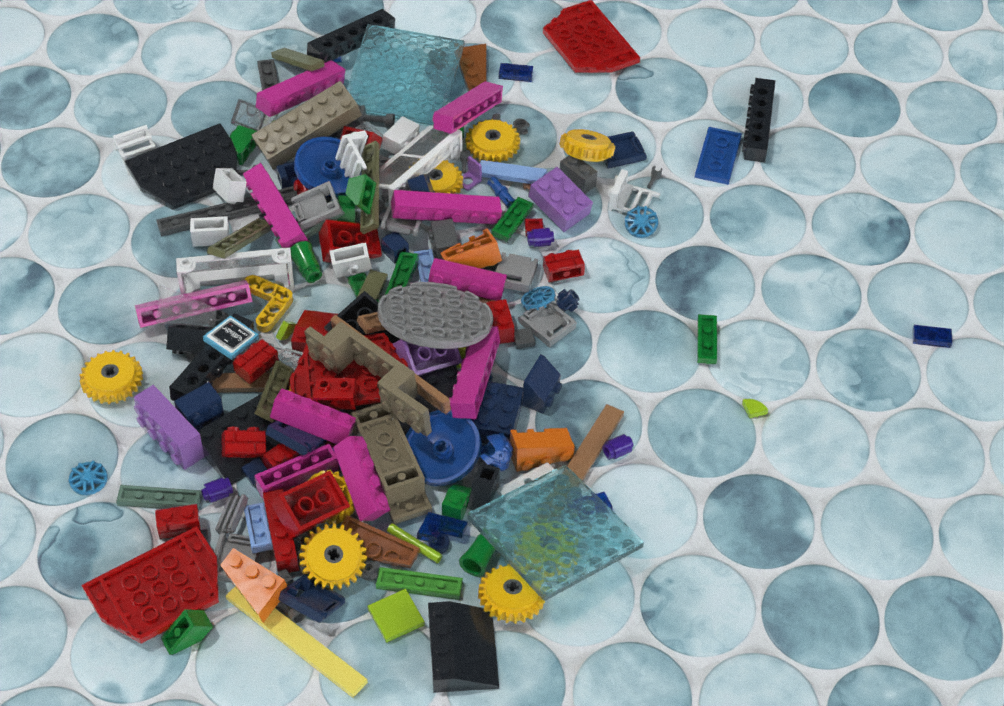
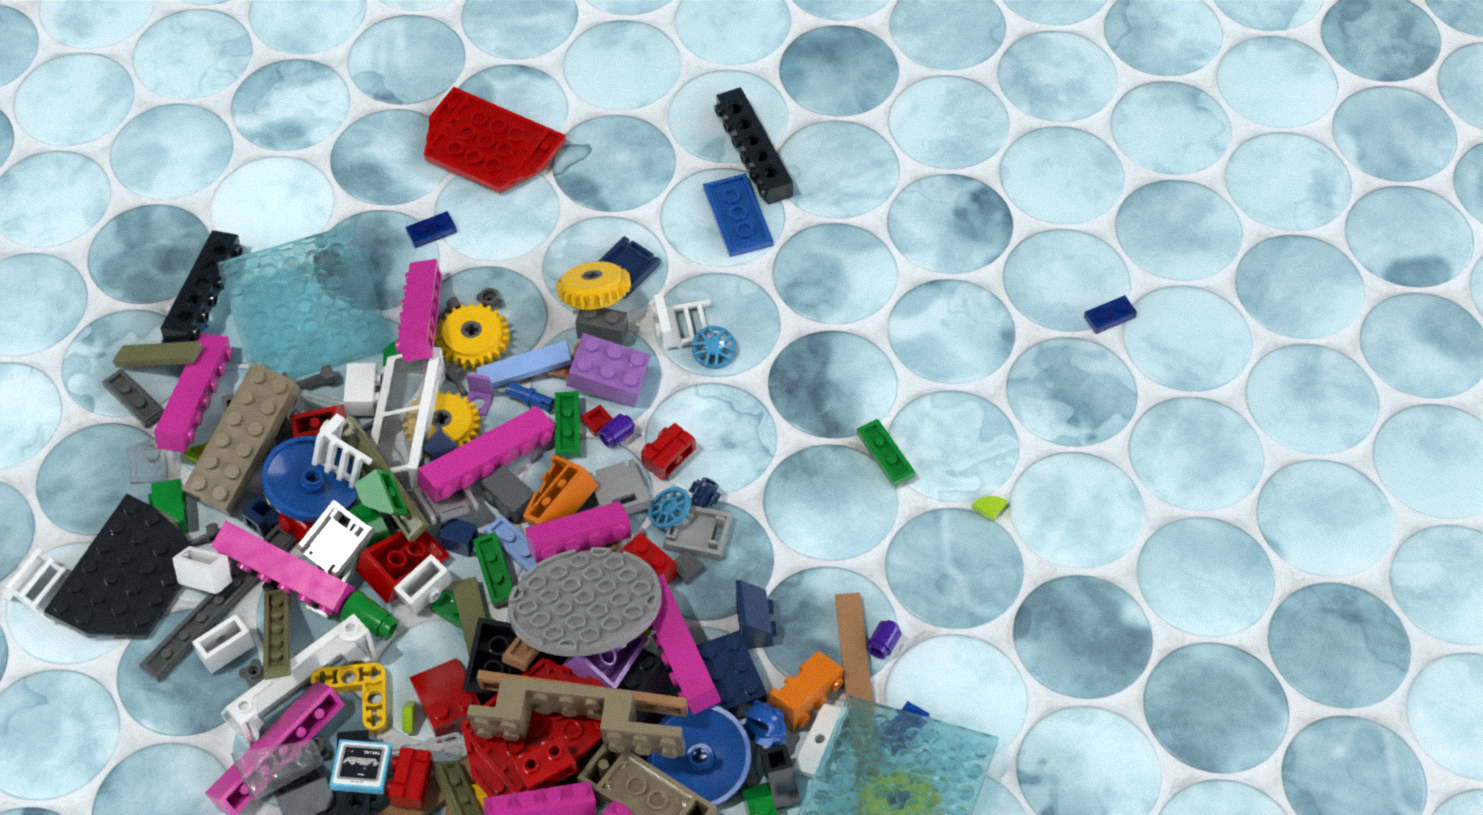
camera: 30 degrees left, 5 degrees up
(473, 65) = (380, 252): dark orange wing -> none
(655, 175) = (686, 279): dark grey hand -> none

